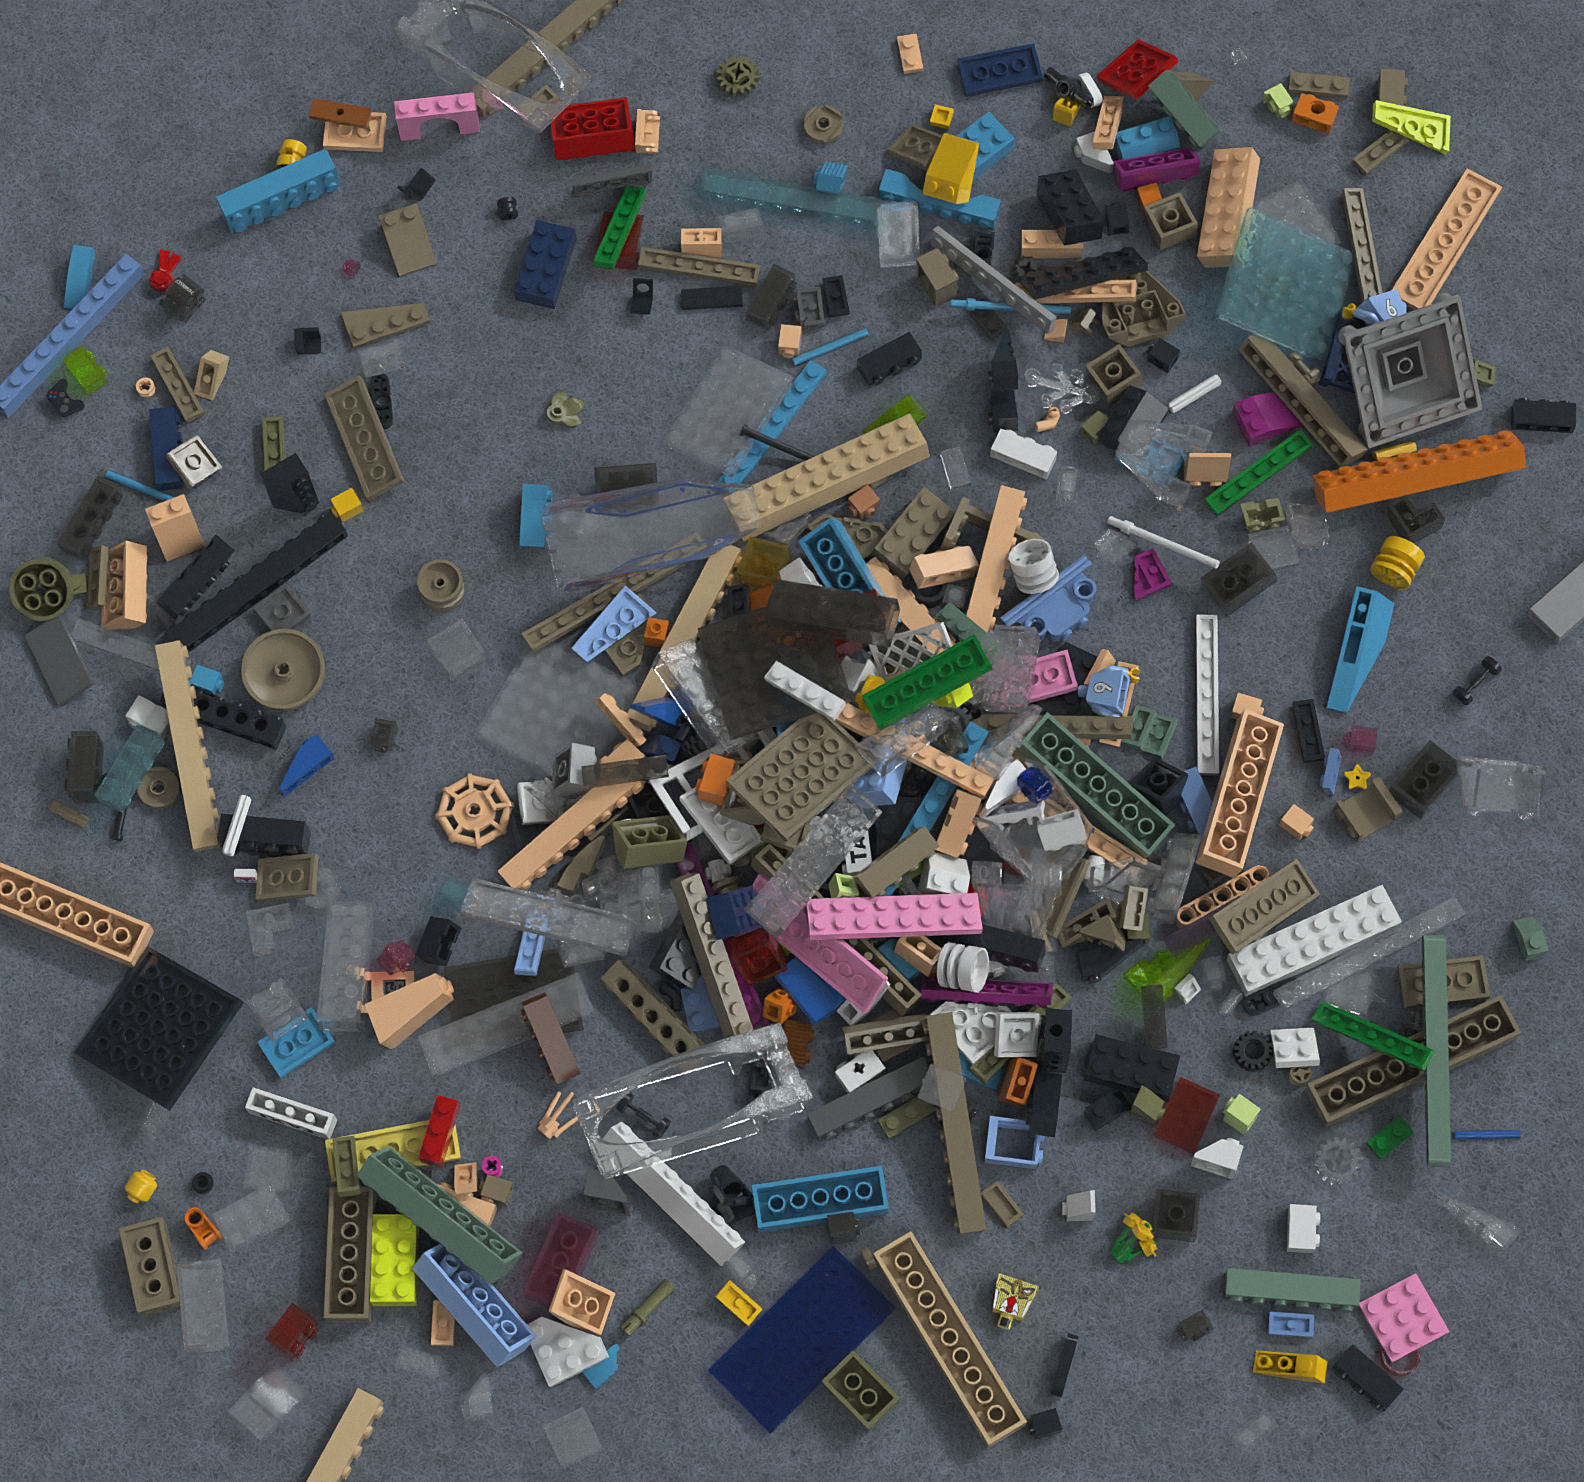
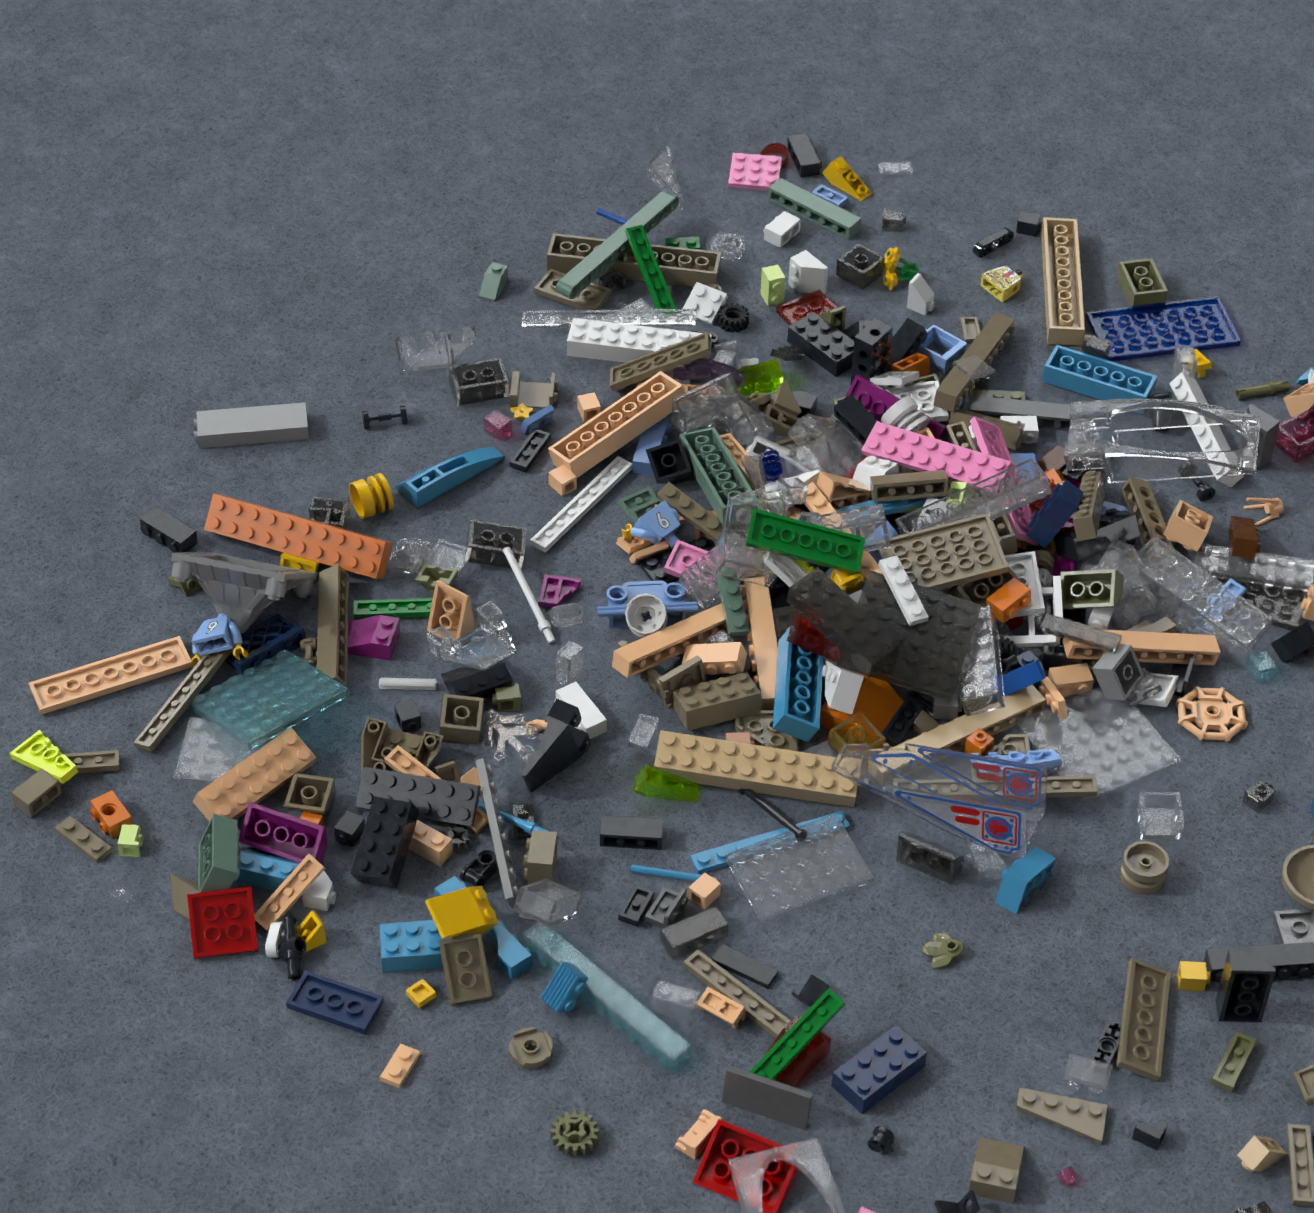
camera: 150 degrees left, 25 degrees down
(611, 1019) = (1188, 526): none -> light nougat brick

